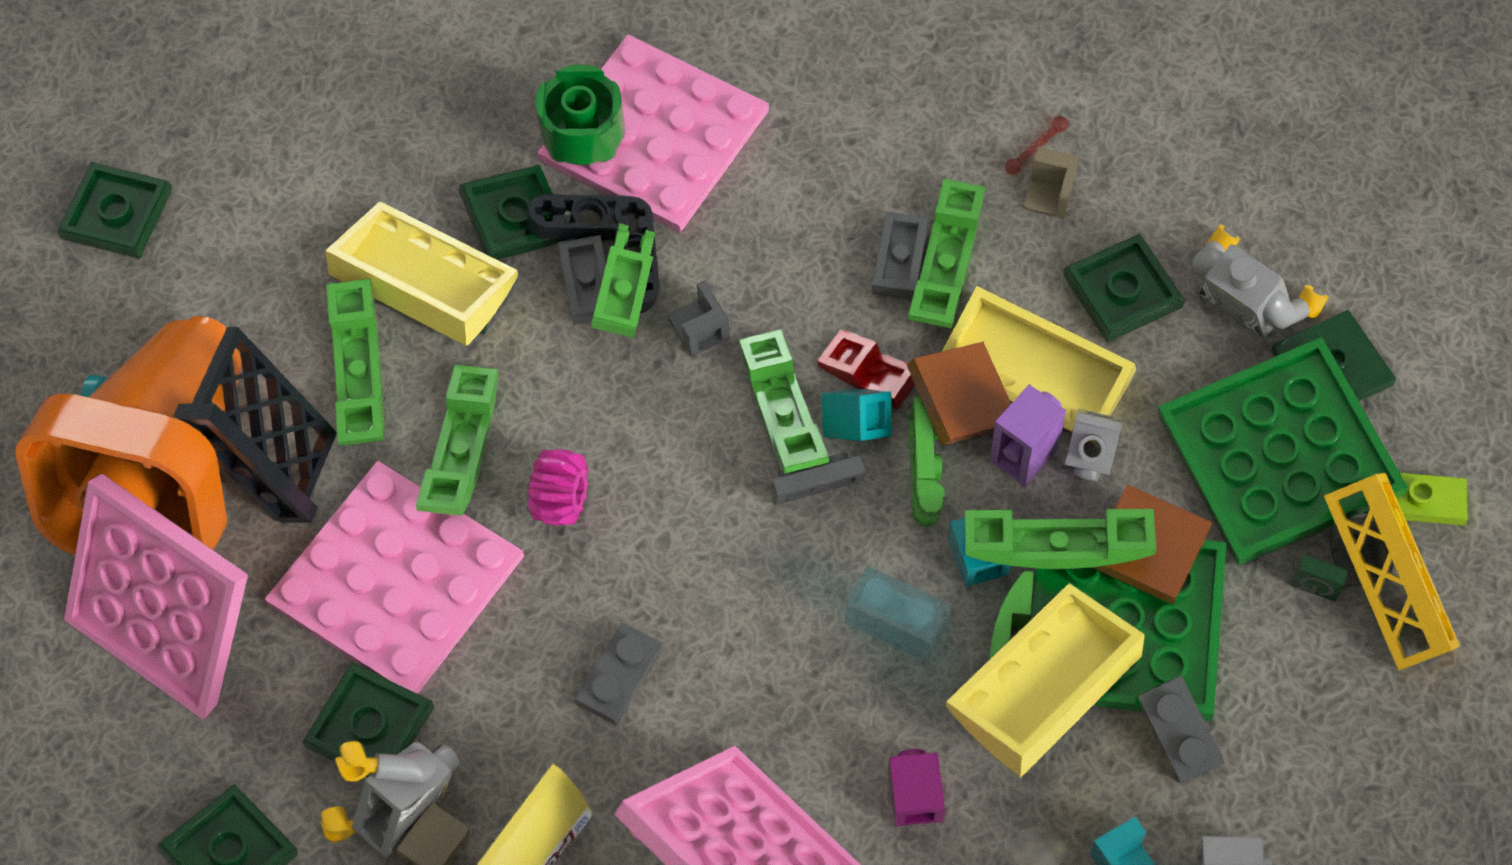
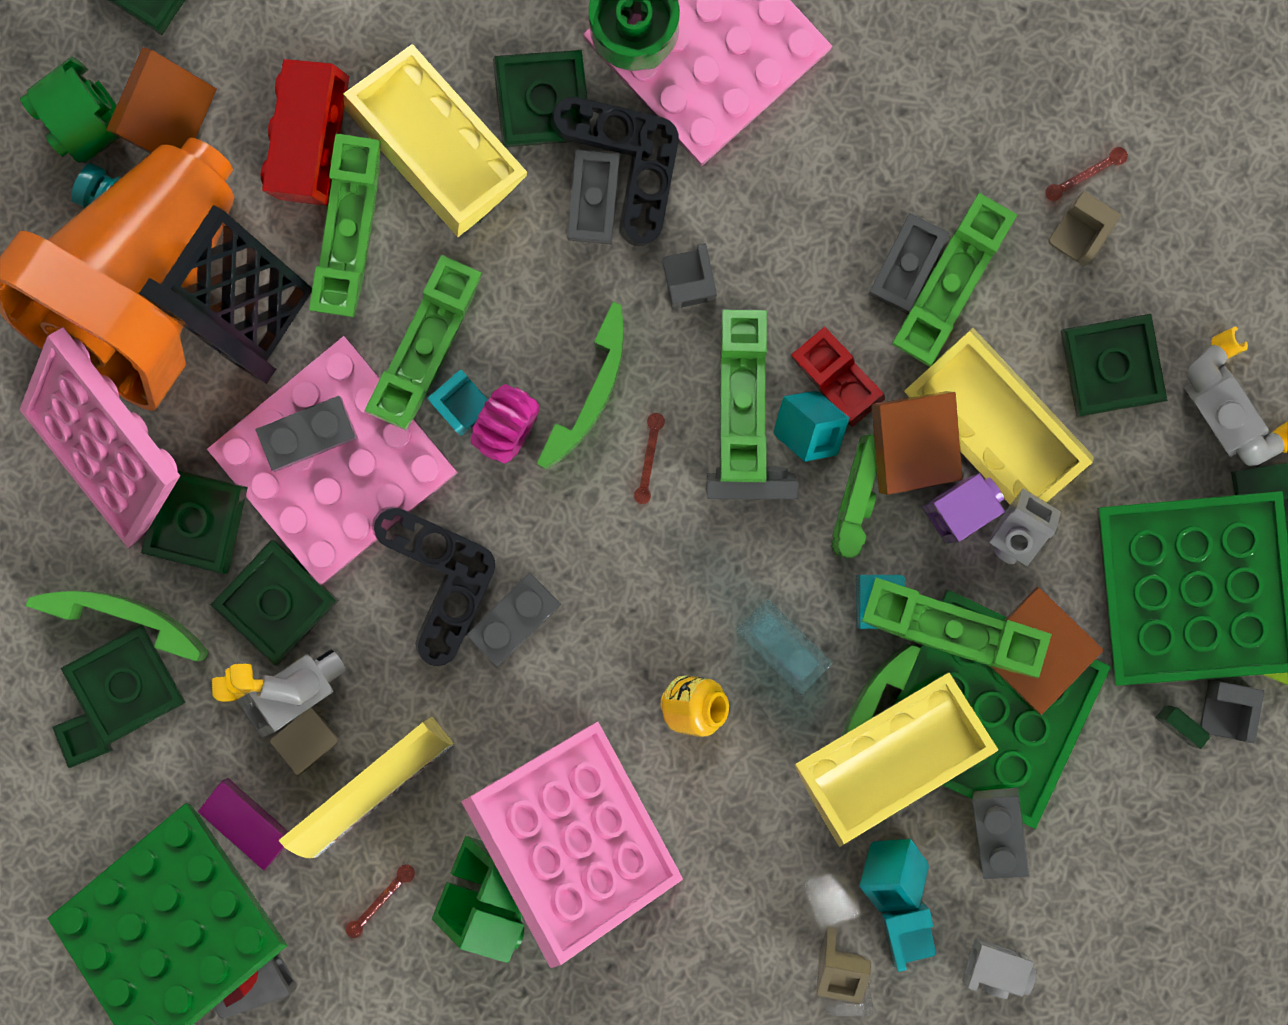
camera: 15 degrees right, 25 degrees up
(70, 330) = (72, 111): none -> green brick
(149, 298) = (160, 104): none -> dark orange tile
(151, 780) = (172, 635): none -> bright green slope
(269, 669) = (197, 523): none -> dark green plate
(295, 295) = (304, 131): none -> red brick
(363, 550) = (306, 433): none -> dark grey plate
(504, 485) = (459, 402): none -> teal panel
(549, 646) = (454, 581): none -> black beam
(623, 285) = (626, 224): bright green hinge -> none
(624, 487) = (564, 441): none -> bright green slope
(706, 457) = (655, 422): none -> clear red hinge
(827, 694) = (694, 705): none -> yellow head
(916, 788) = (746, 814): magenta brick -> none
(1088, 804) = (894, 875): none -> teal panel
(1408, 563) = (1268, 745): yellow fence -> none

